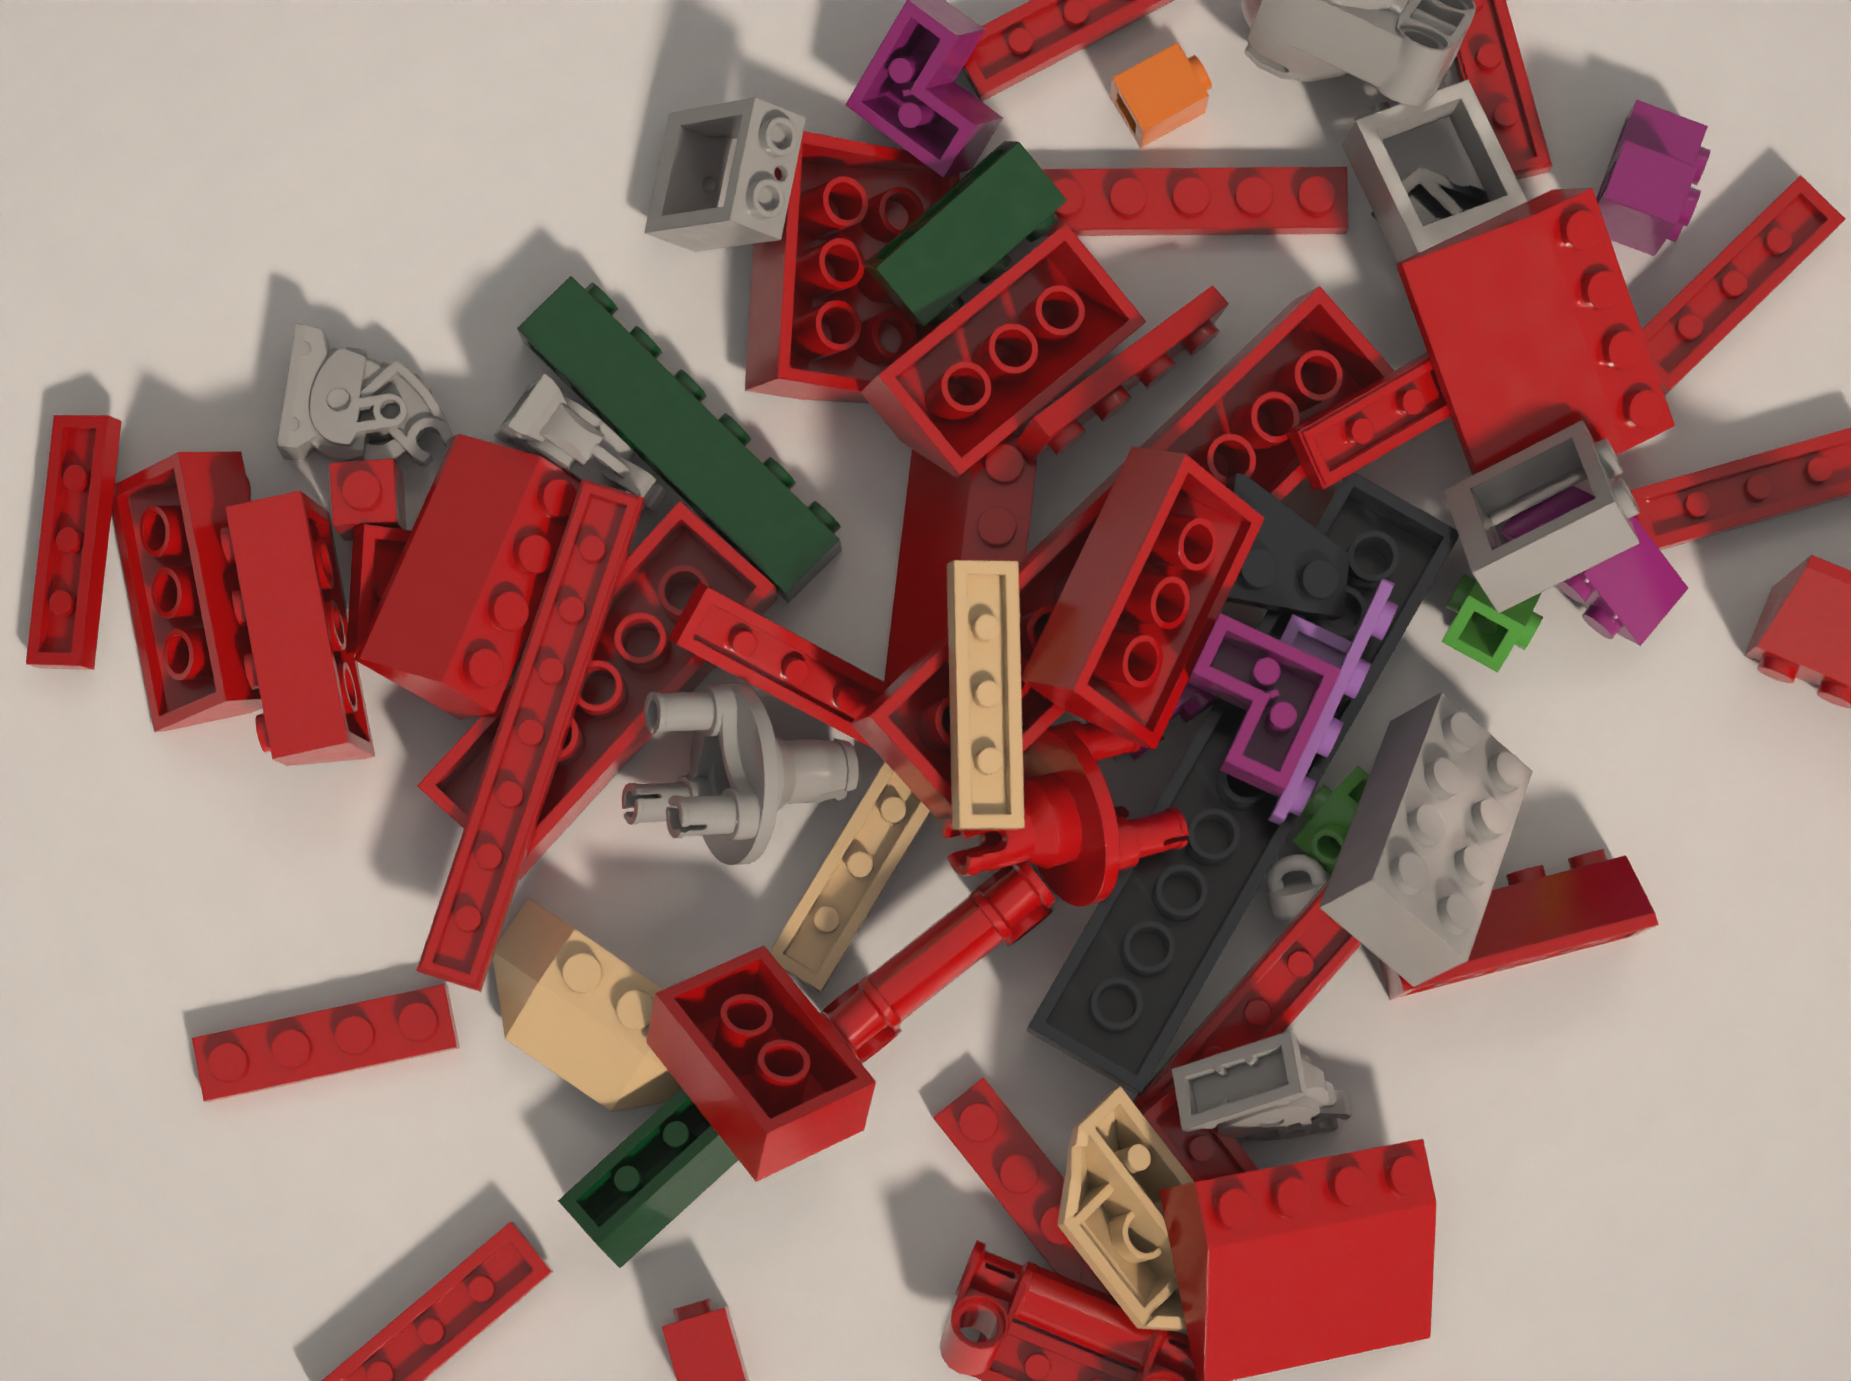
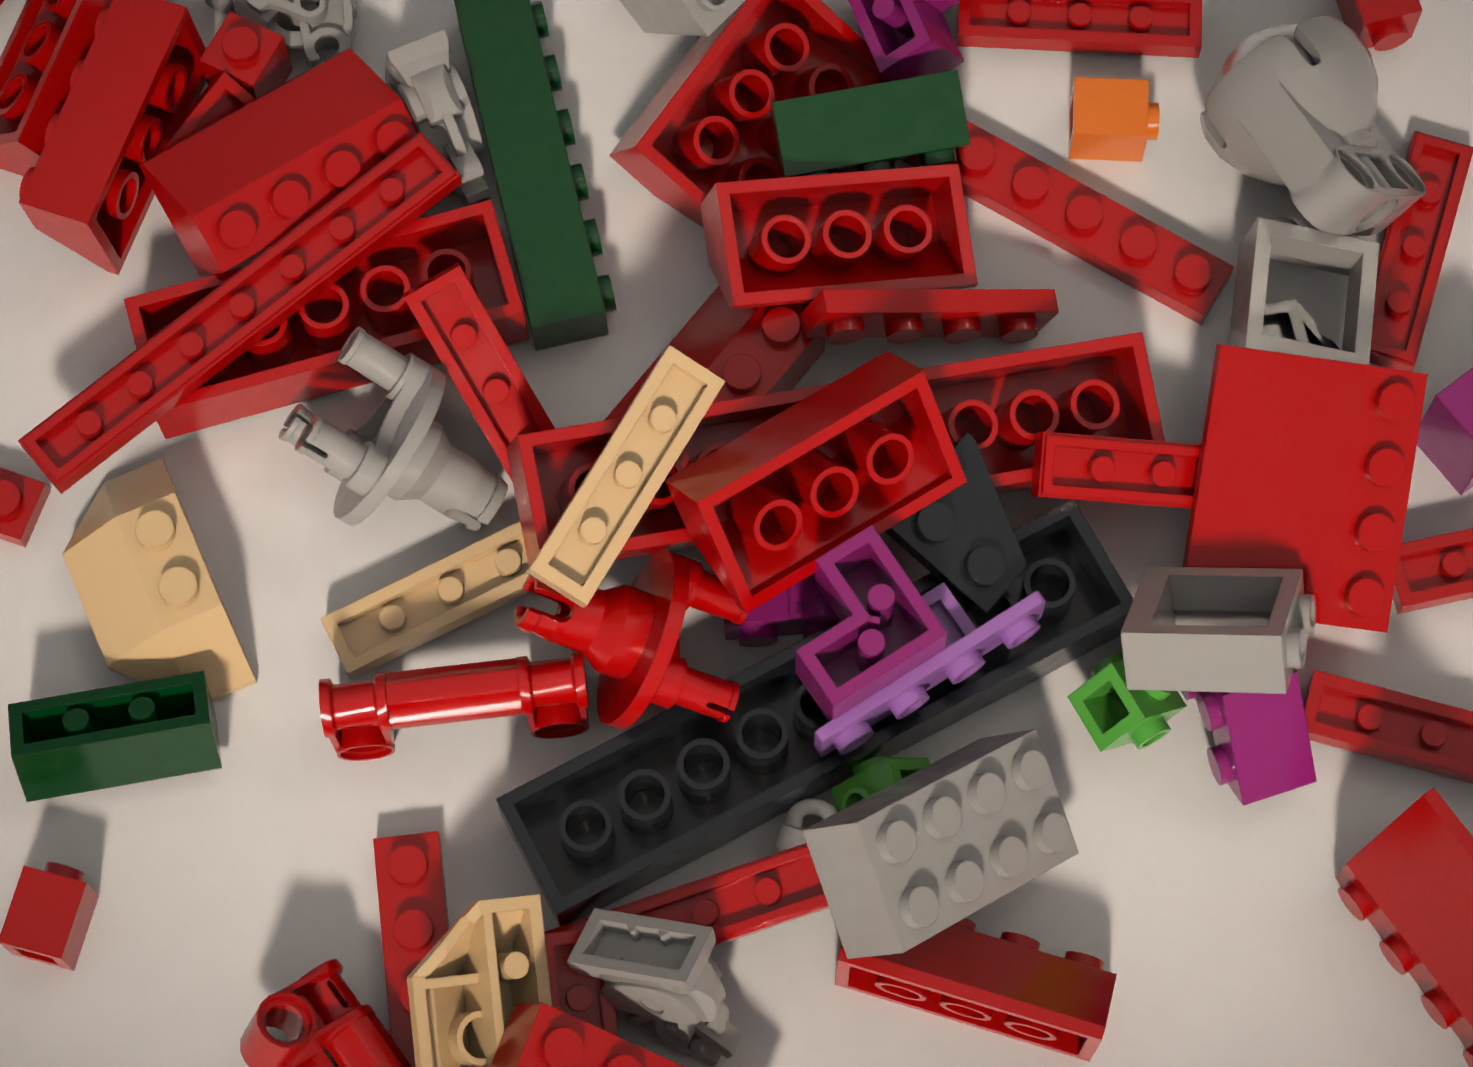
camera: 30 degrees right, 10 degrees down
(760, 1062) = (246, 685): red brick -> none

